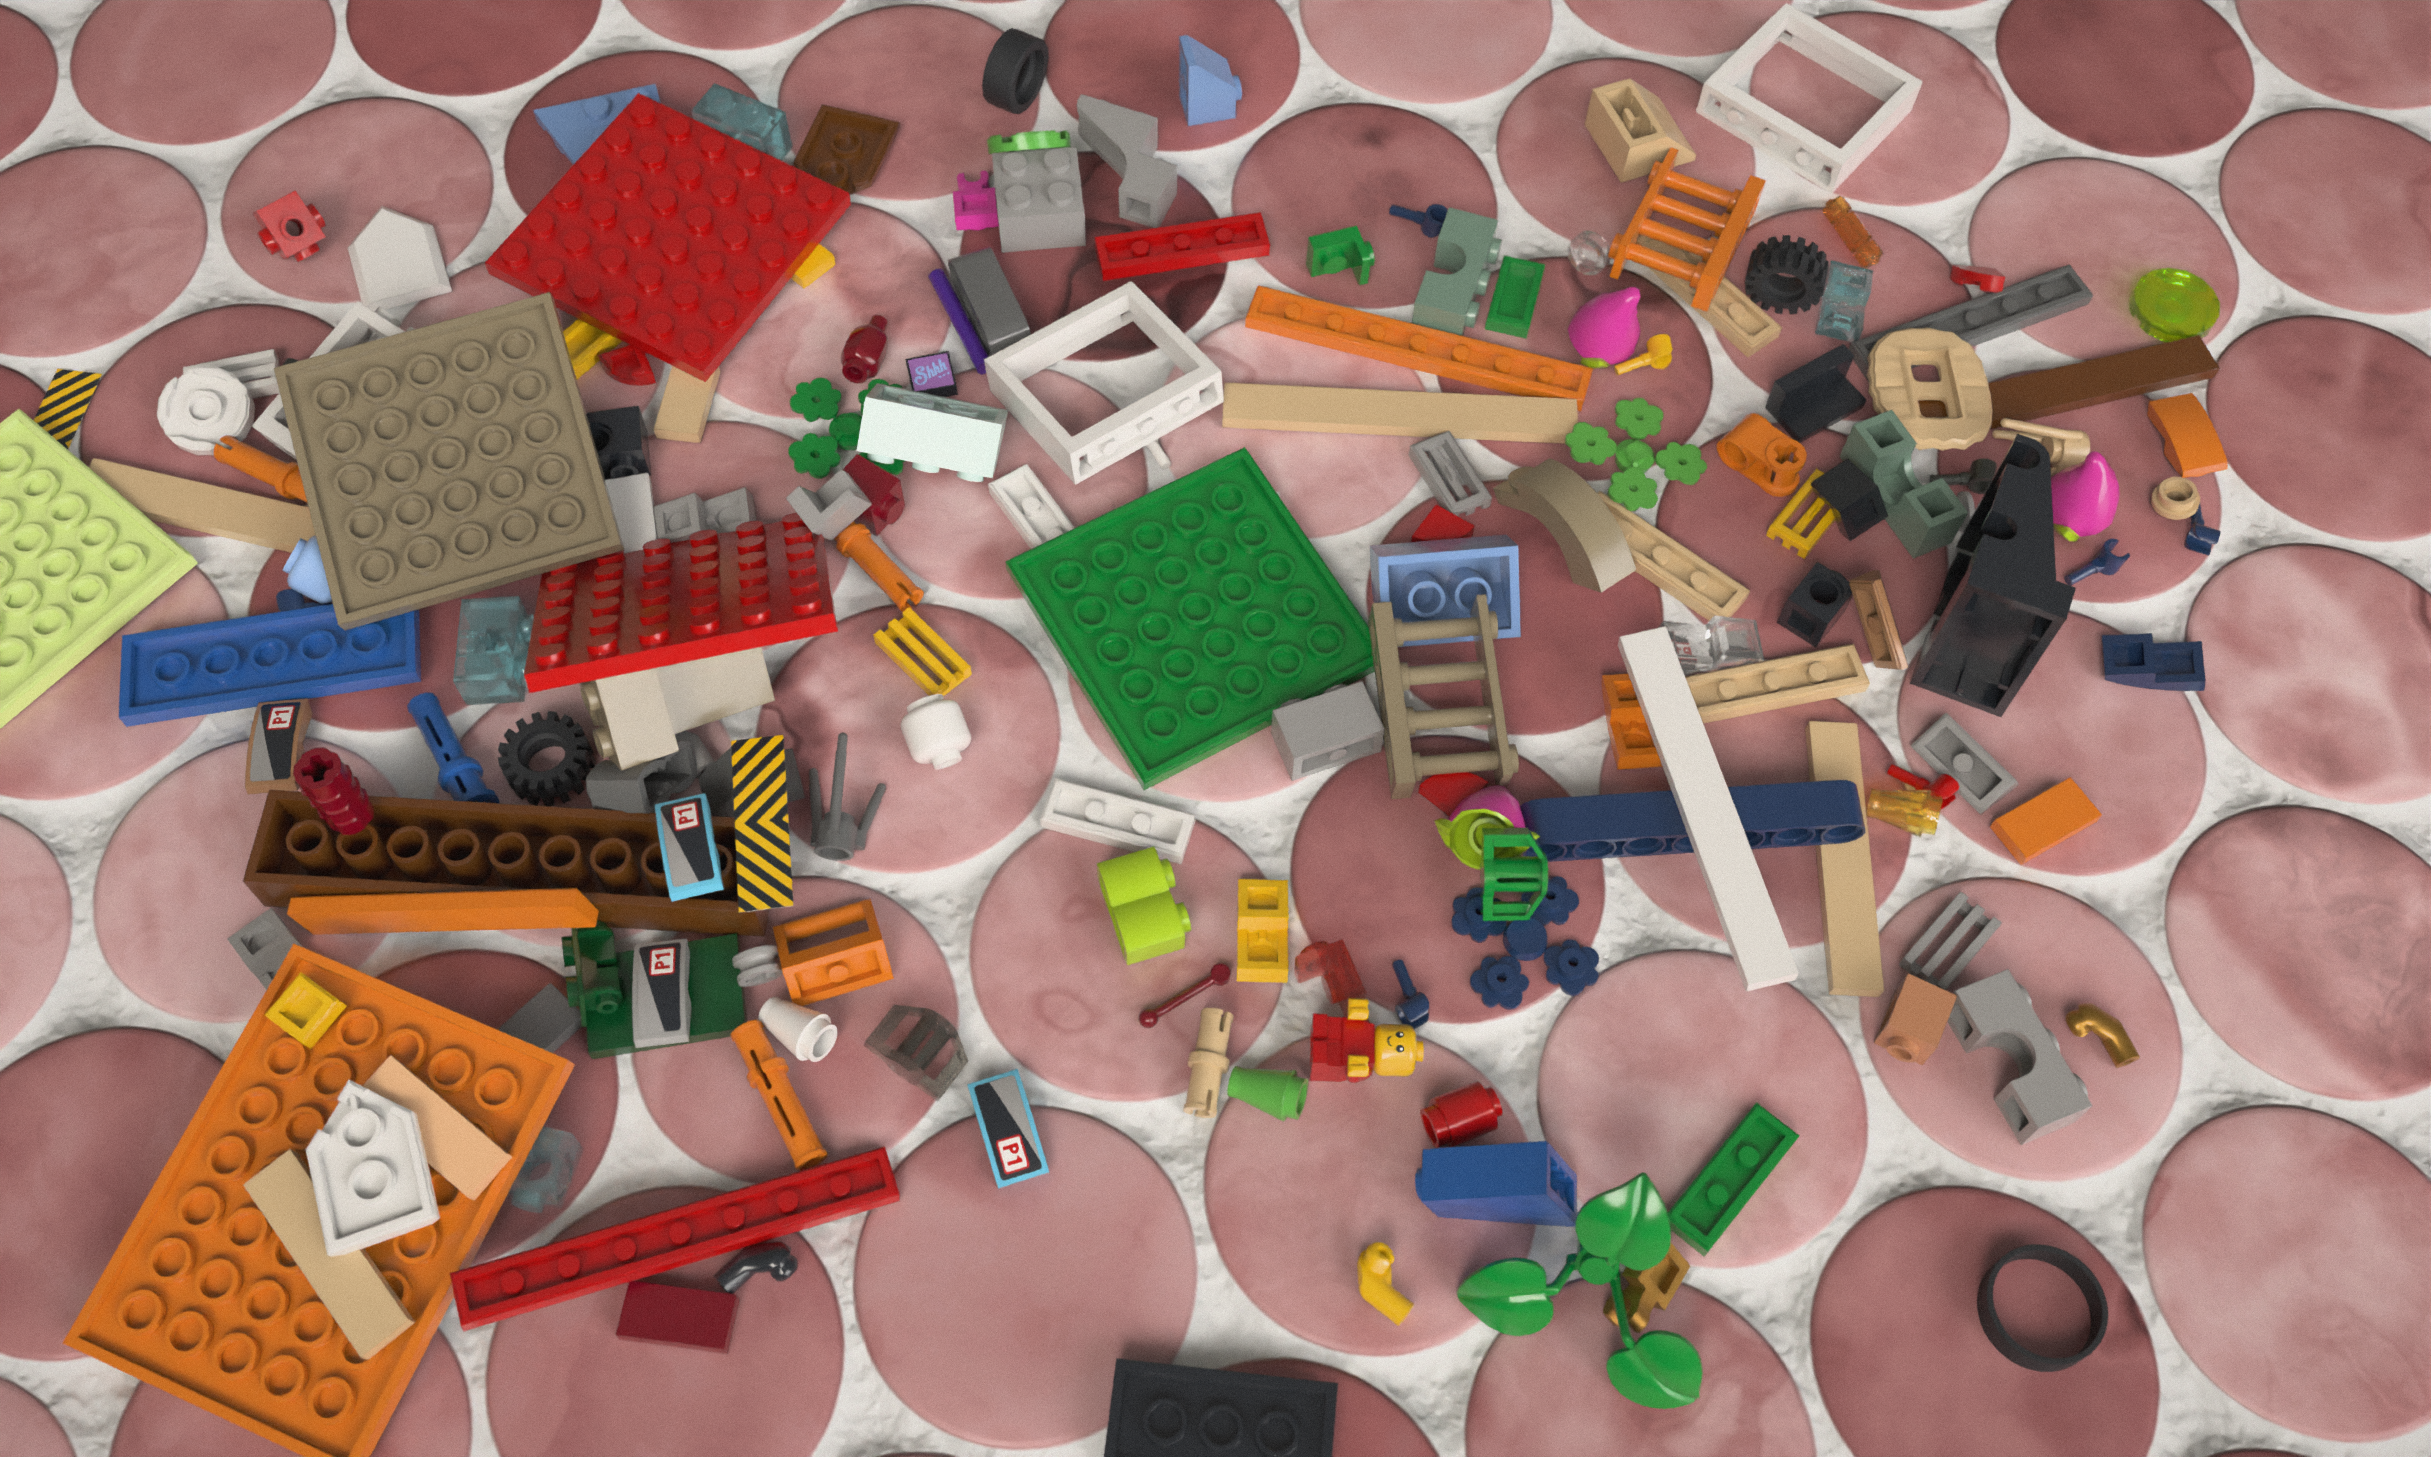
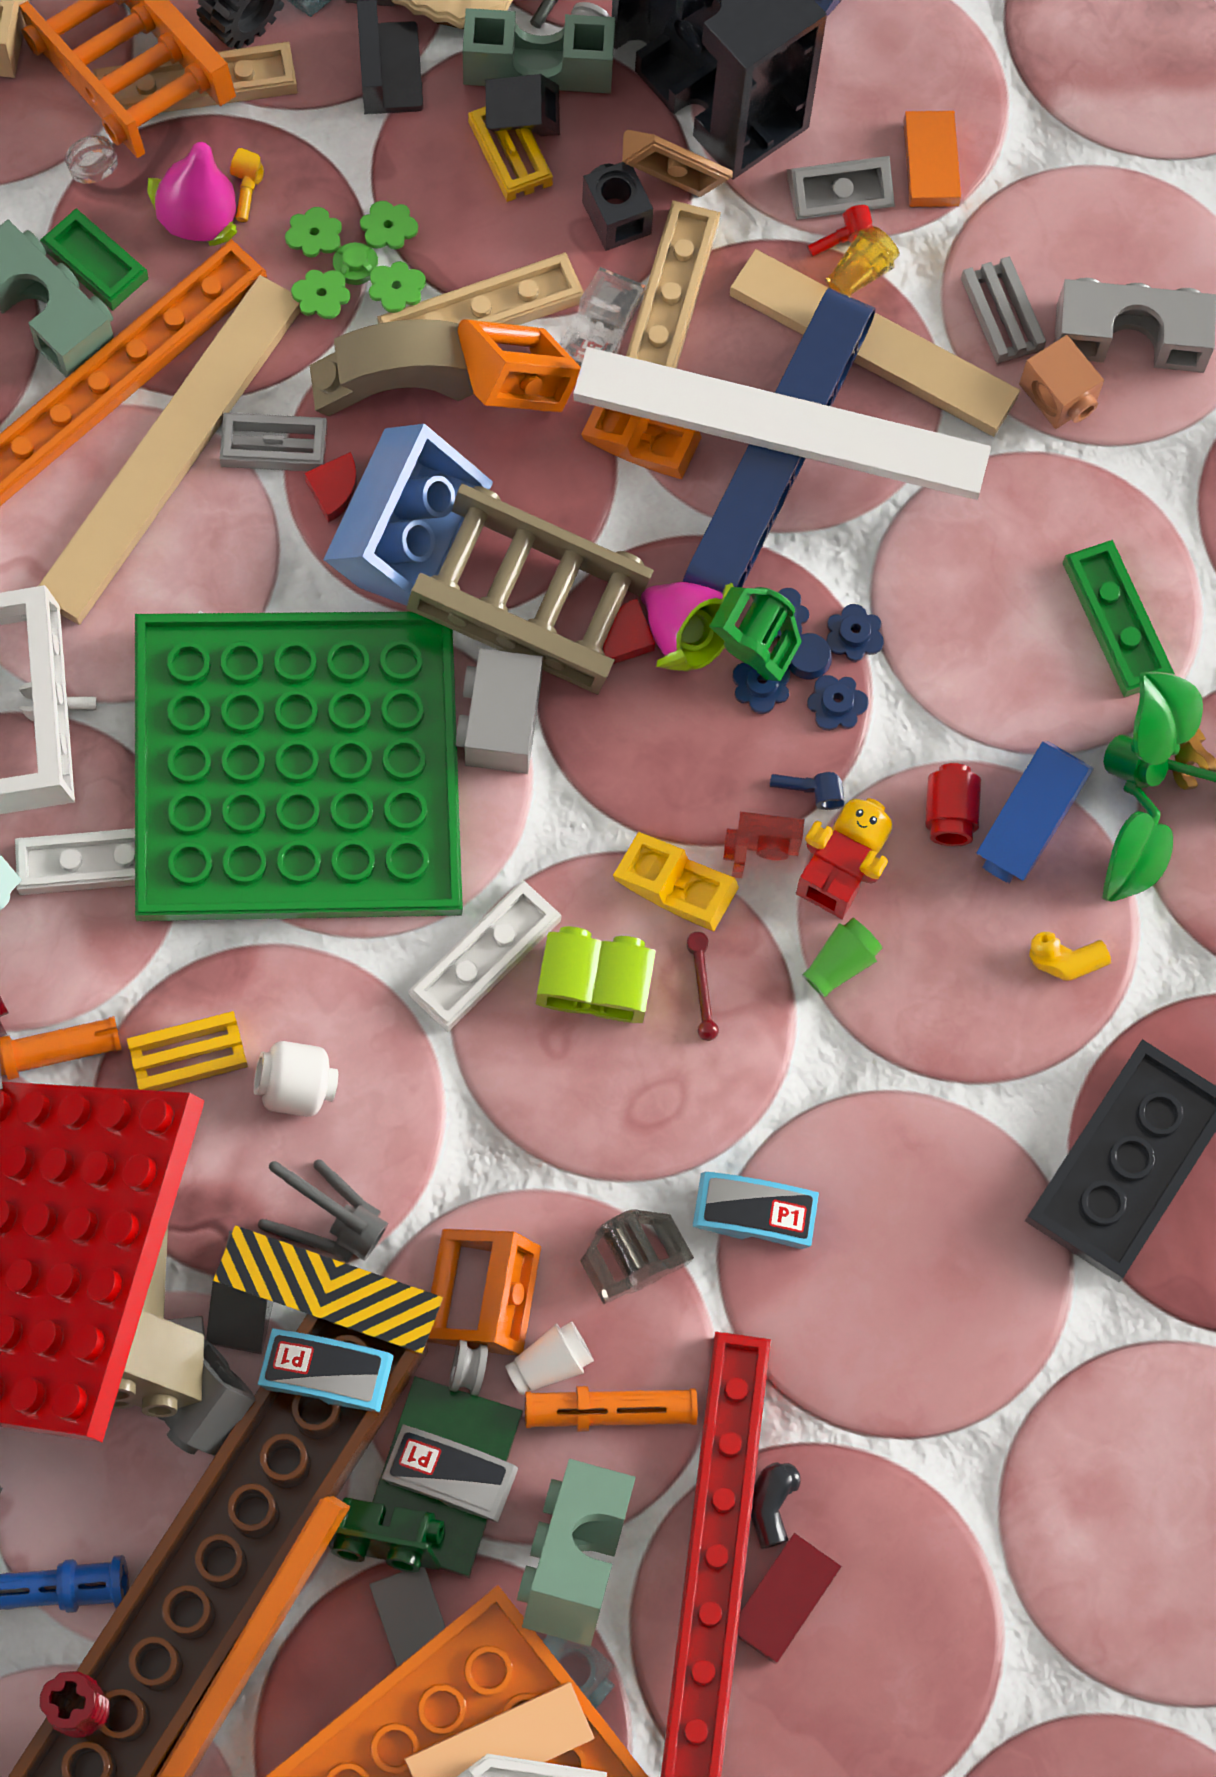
camera: 65 degrees left, 10 degrees up
(538, 736) = (107, 1522): black tyre -> none
(672, 1108) = (568, 1585): none -> sand green arch
(1208, 1063) = (786, 997): tan pin -> none
(1608, 597) = (514, 378): none -> orange tile
(1759, 451) = (423, 150): orange piece -> none
(2107, 1028) = (1146, 238): pearl gold arm -> none

